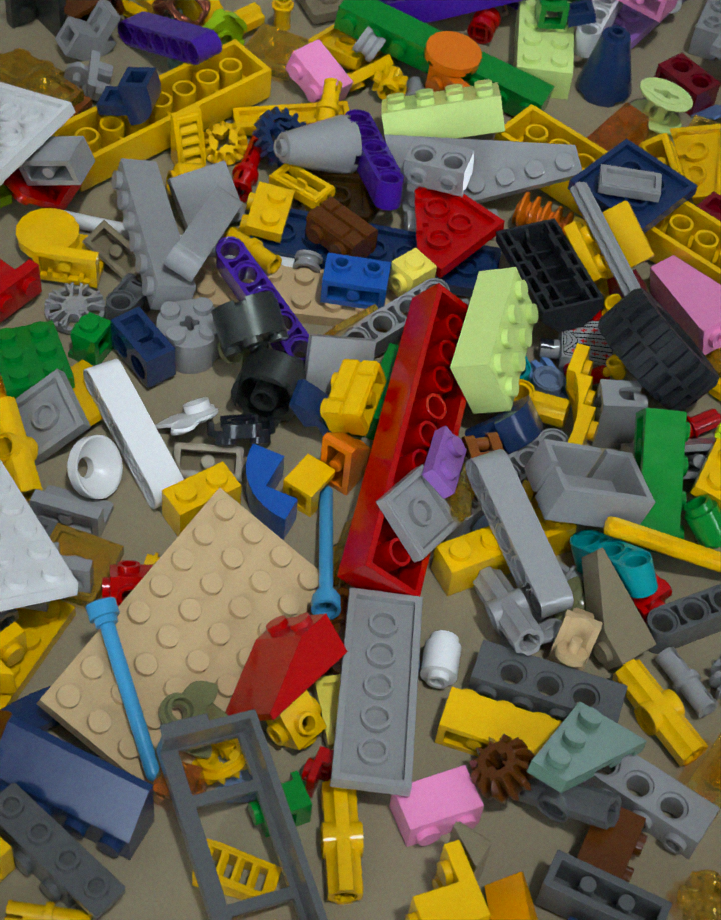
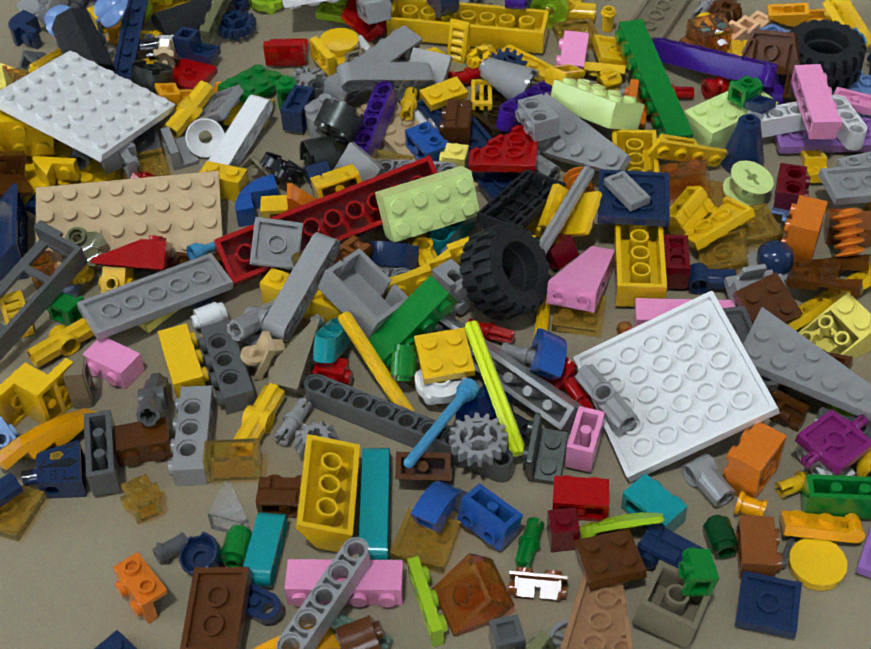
camera: 60 degrees right, 5 degrees down
(104, 616) = (94, 175): dark azure piece -> none
(194, 413) = (282, 150): white plate -> none
(328, 105) = (553, 62): yellow pin -> none
(361, 105) = (560, 71): none -> yellow slope
(369, 44) = (613, 51): light grey wheel -> none
(444, 462) = (328, 227): medium lavender plate -> none
(453, 53) = (647, 79): orange tile -> none
(502, 769) = (145, 365): reddish brown gear -> none
(575, 111) = (685, 150): none -> yellow bracket
(582, 747) = (188, 384): sand green wing -> none
(660, 46) = (815, 161): none -> yellow slope

